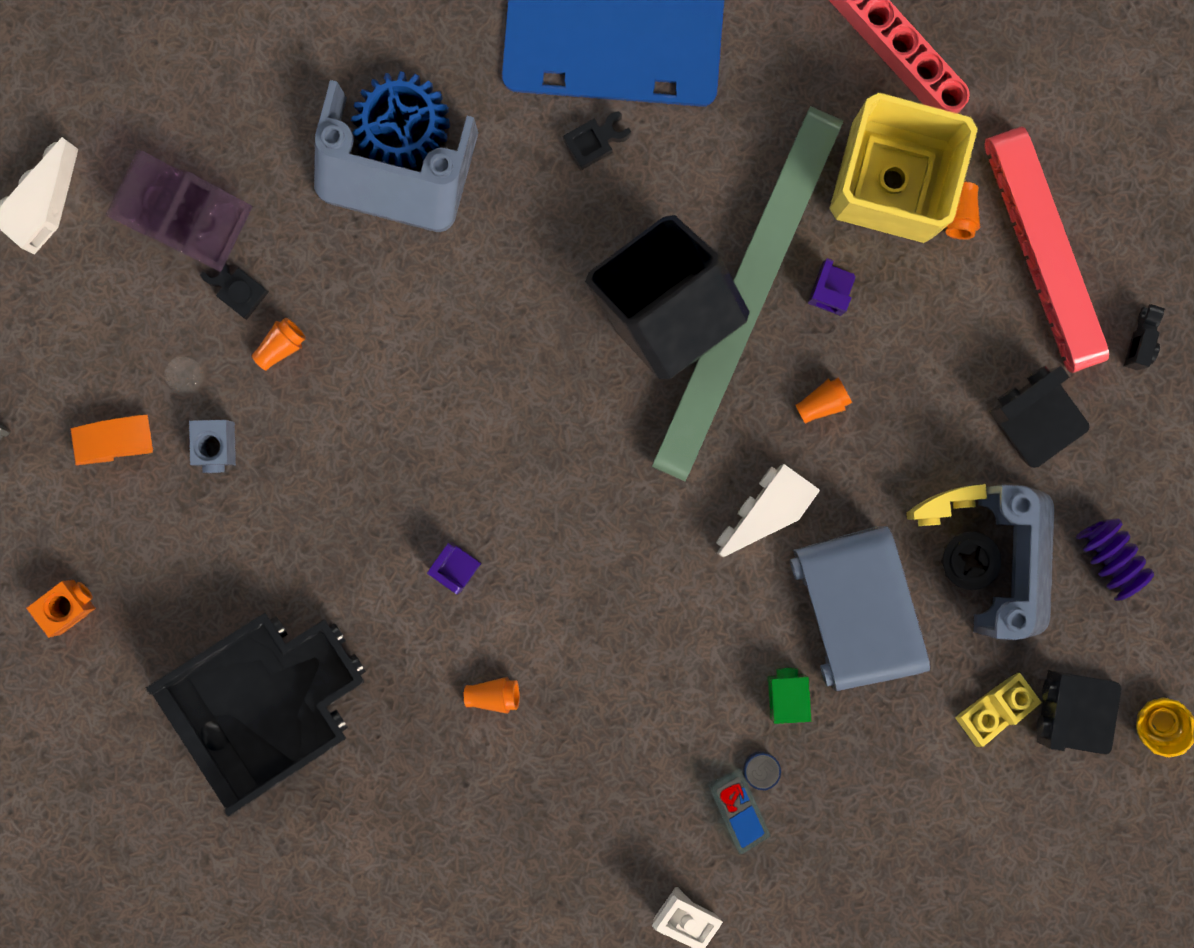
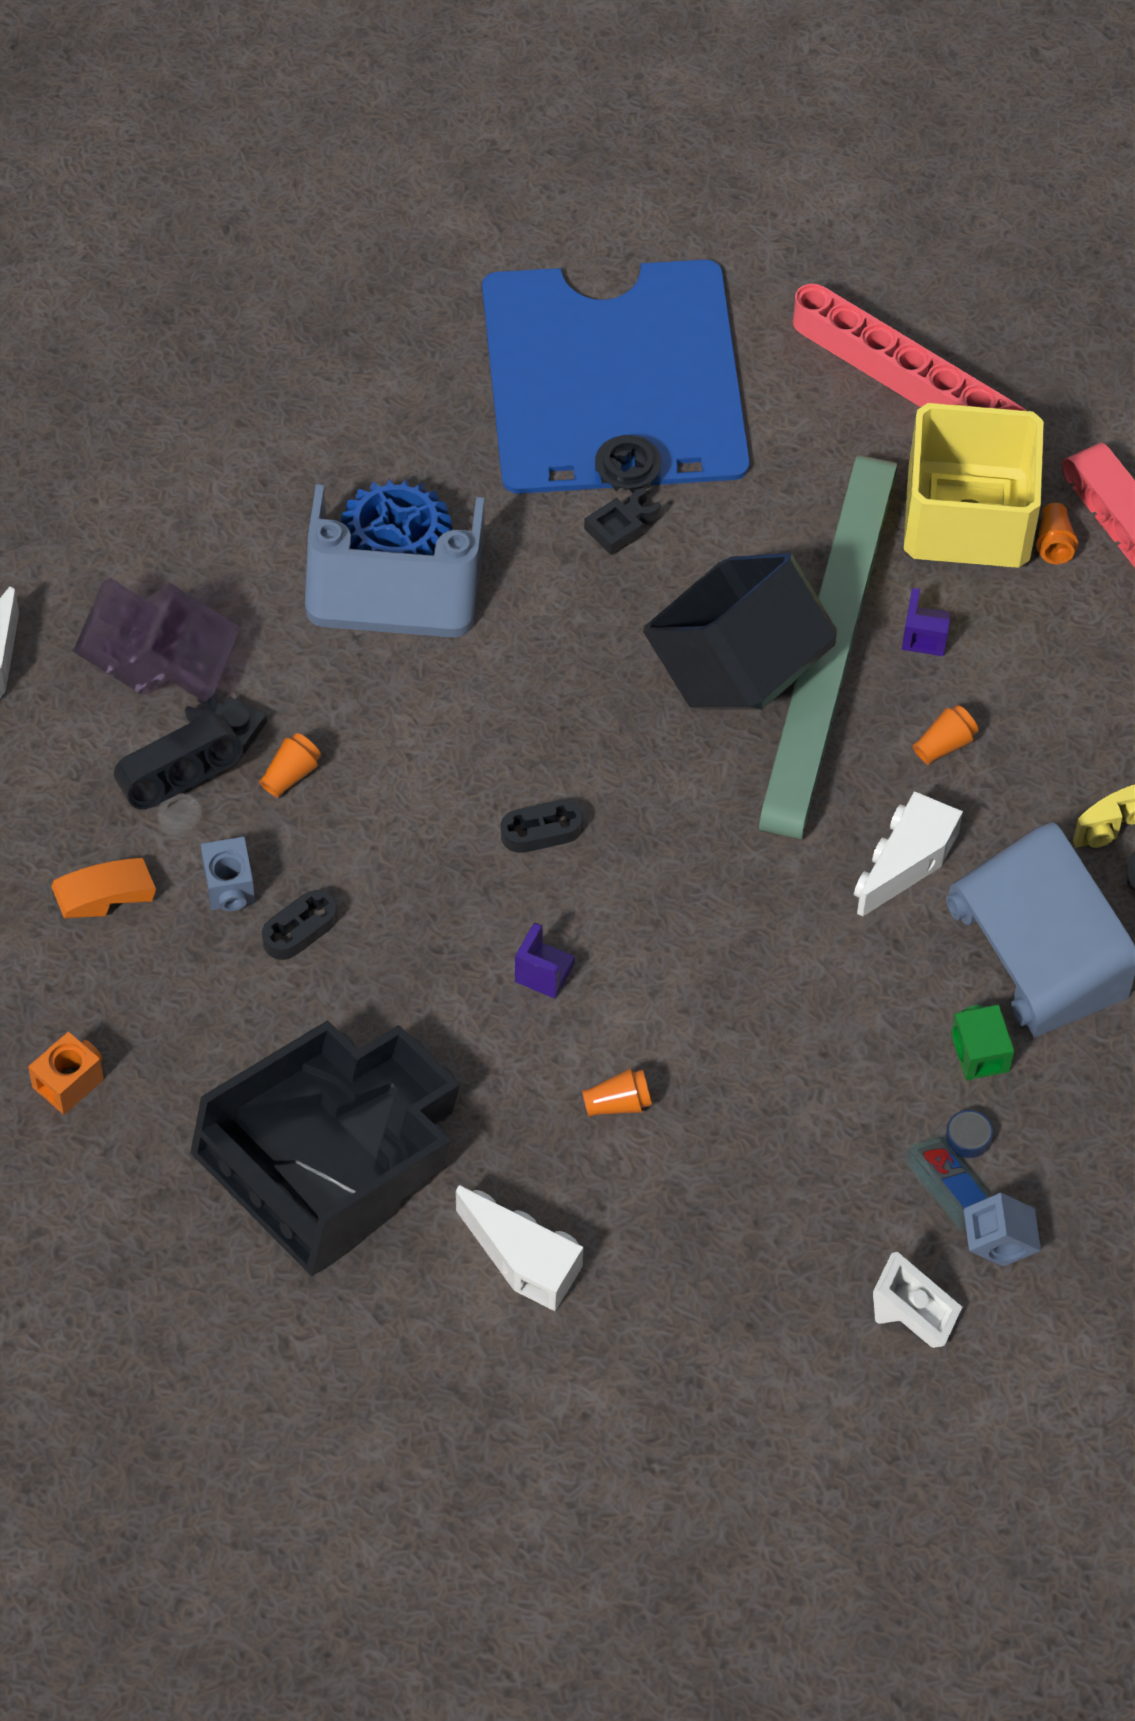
camera: 10 degrees left, 30 degrees down
(184, 332) = (158, 763): none -> black beam
(270, 503) = (302, 928): none -> black beam
(396, 827) = (526, 1254): none -> white slope
(475, 424) = (541, 826): none -> black beam
(607, 66) = (618, 452): none -> black gear
(766, 872) = (1002, 1229): none -> sand blue brick

